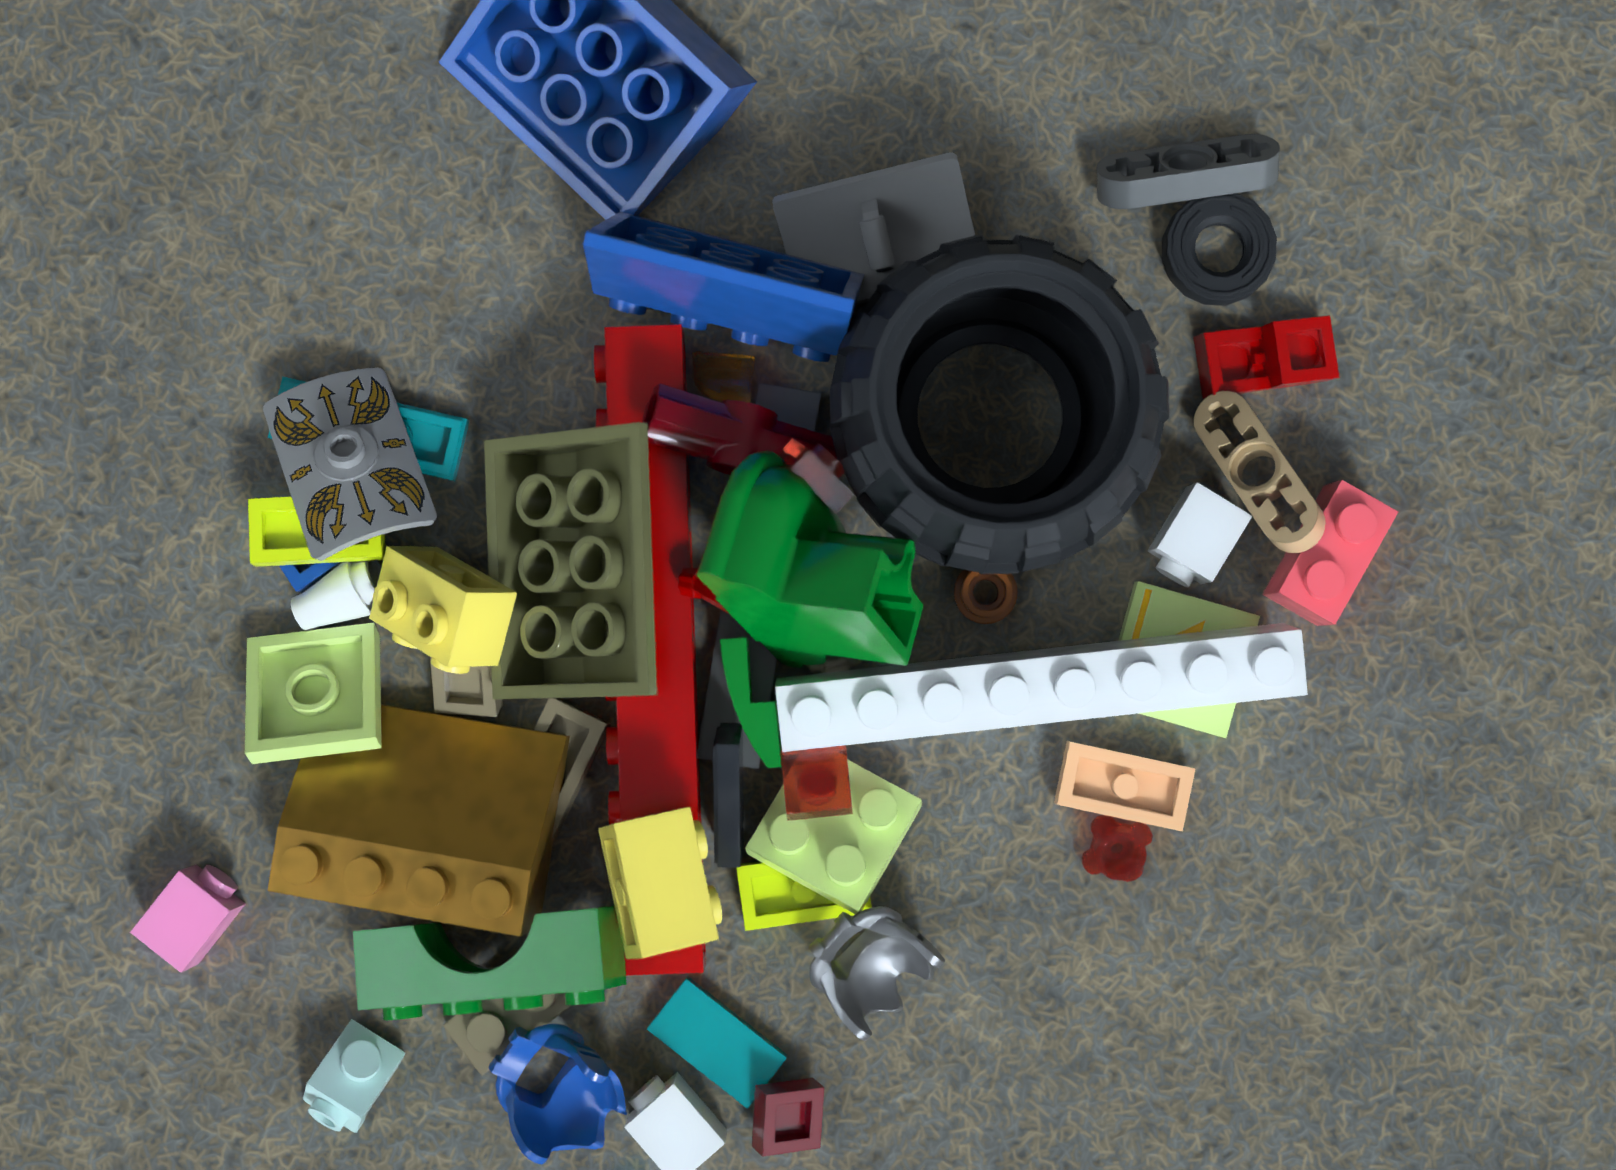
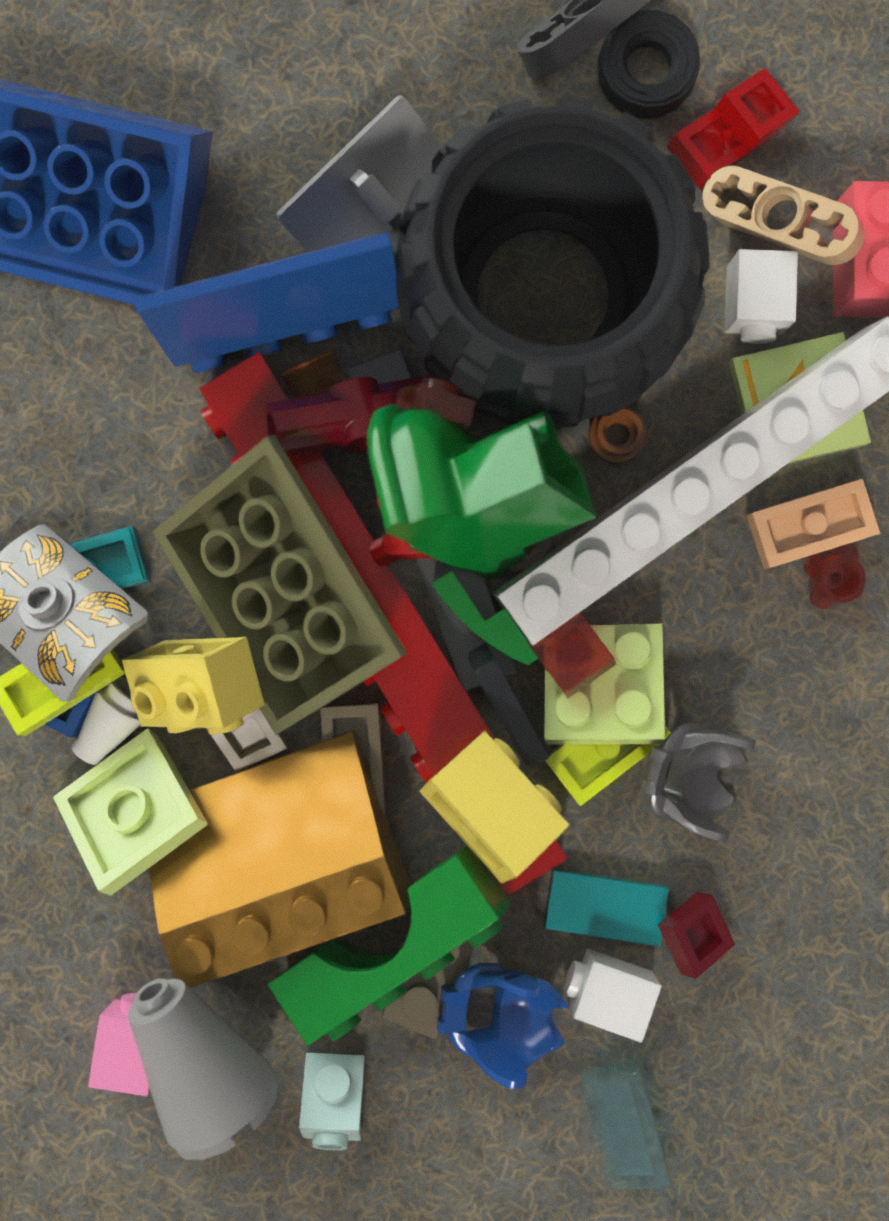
camera: 25 degrees left, 0 degrees up
(244, 973) = (198, 1070): none -> light grey cone

